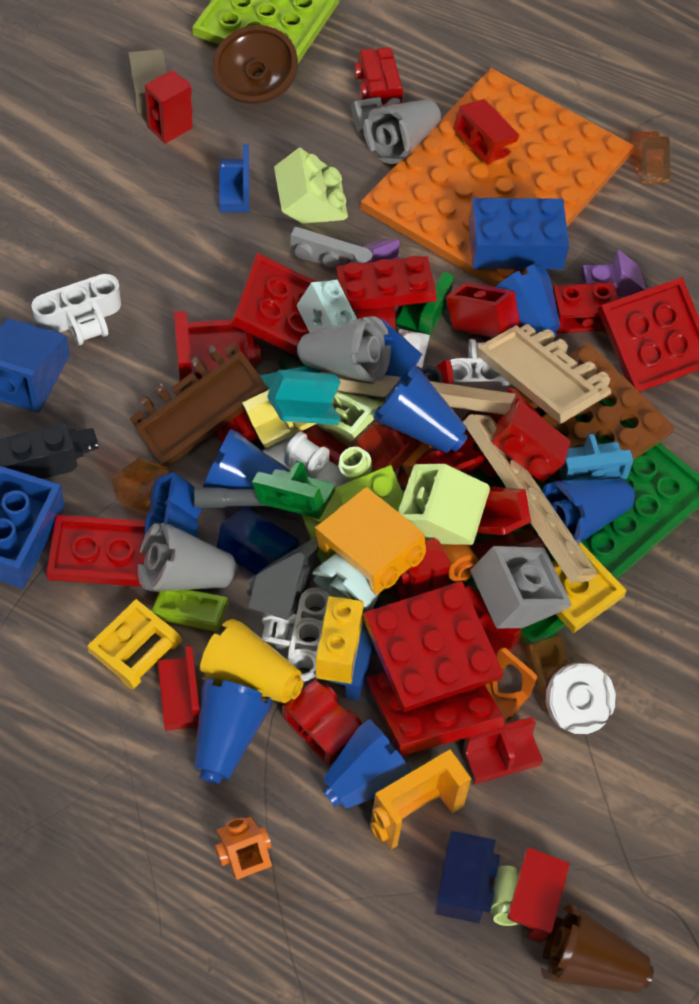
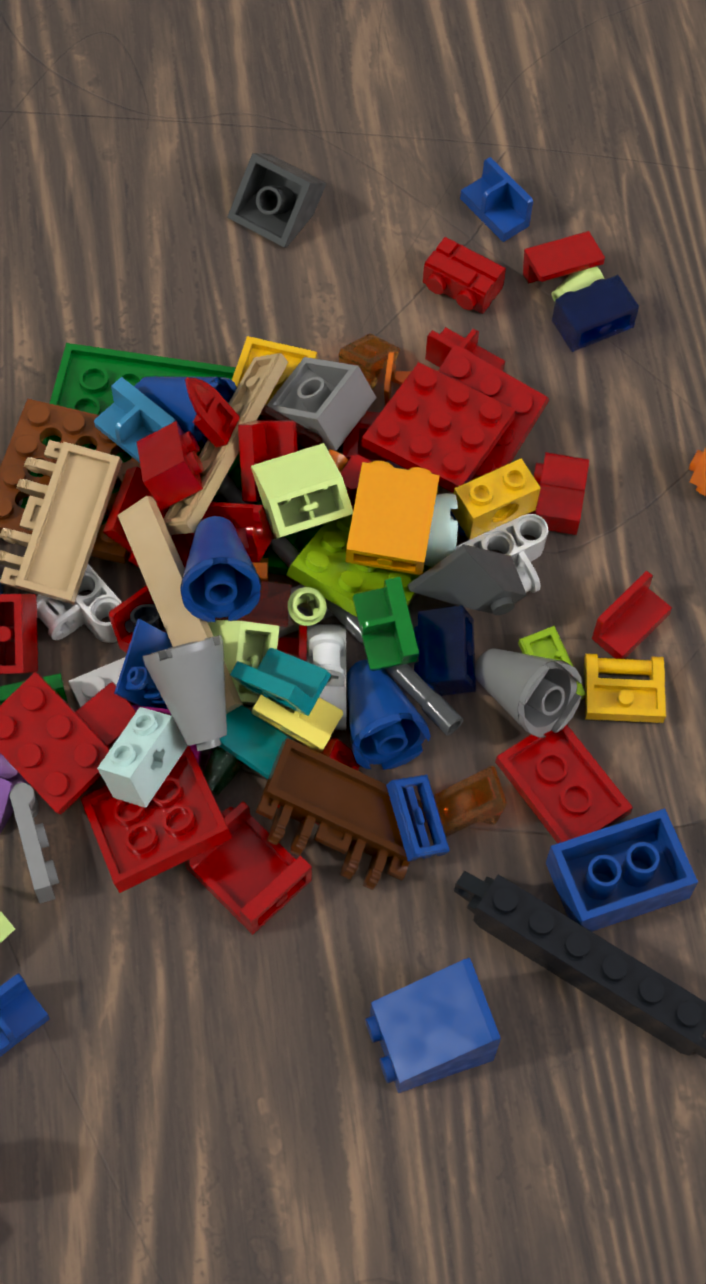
camera: 125 degrees left, 5 degrees up
(79, 307) = (323, 1018): white piece -> none
(173, 504) = (483, 739): blue brick -> none
(181, 452) = (411, 819): none -> blue tile
(226, 727) = (627, 548): blue cone -> none
(250, 661) = (573, 562): yellow cone -> none
(363, 768) = (576, 426): blue cone -> none
(439, 777) = (569, 377): light orange panel -> none
(549, 477) = (214, 414): none -> red plate
(580, 698) = (371, 328): white tile -> none
(583, 808) = (463, 275): none -> red brick
(593, 956) = (580, 203): reddish brown cone -> none
(646, 900) = (498, 201): none -> blue panel

